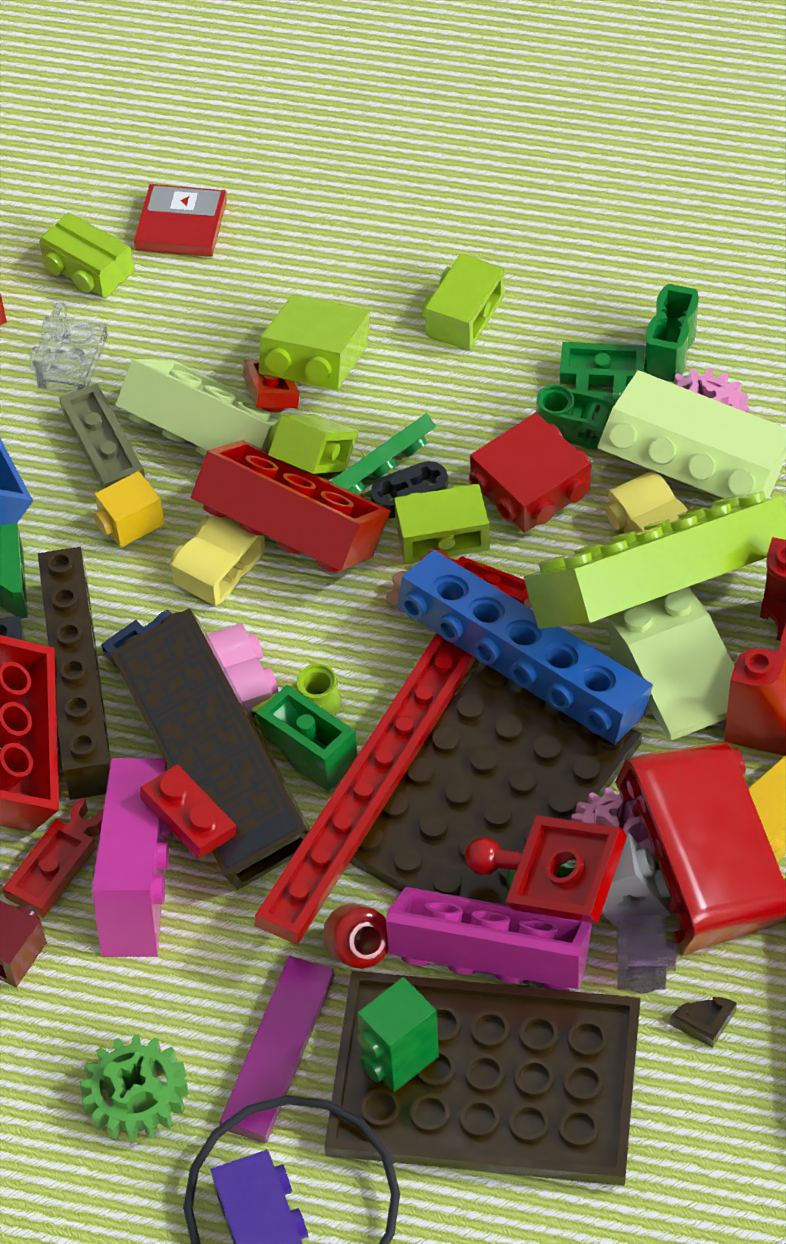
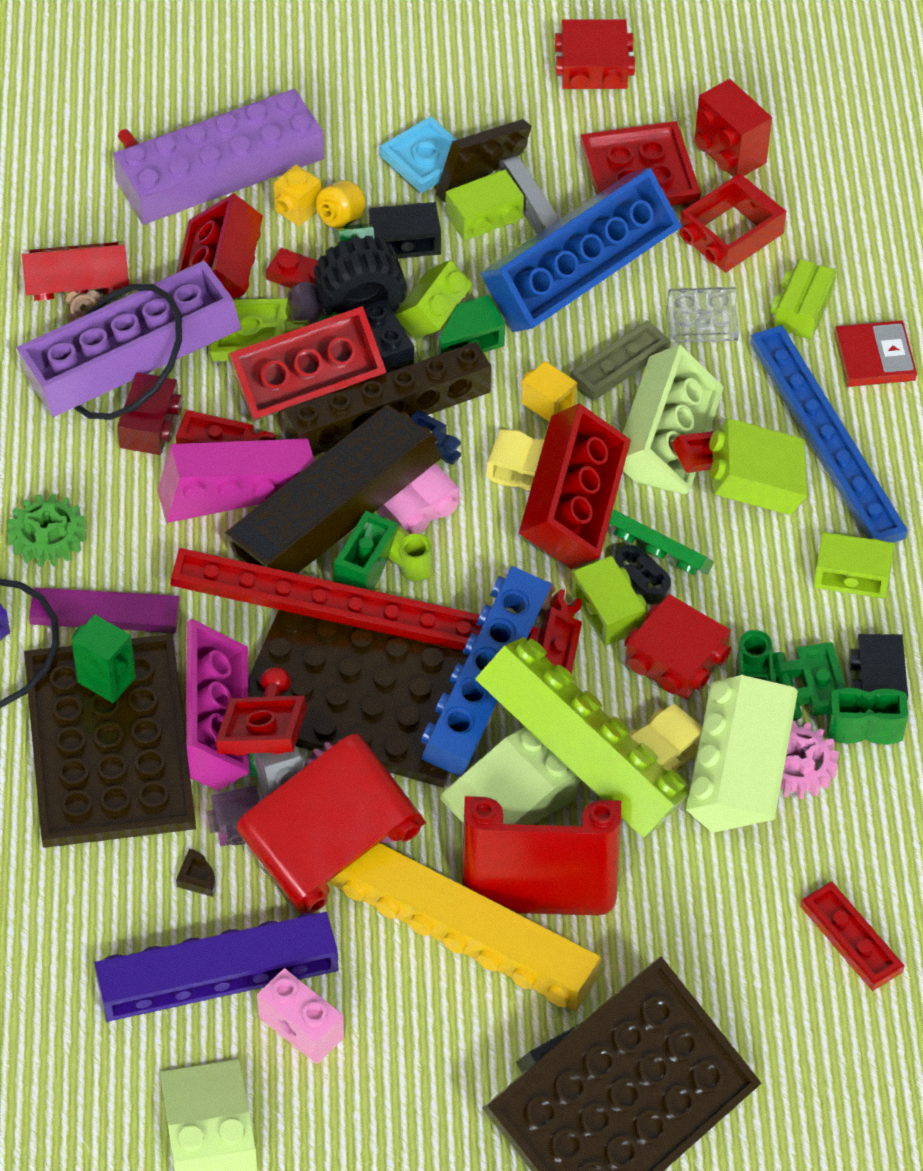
camera: 70 degrees right, 0 degrees up
(188, 811) = (262, 488): red plate -> none
(277, 282) = (828, 436): none -> blue plate
(312, 443) = (647, 488): lime brick -> none
(356, 935) = (204, 614): red head -> none
(611, 312) = (879, 662): none -> black brick

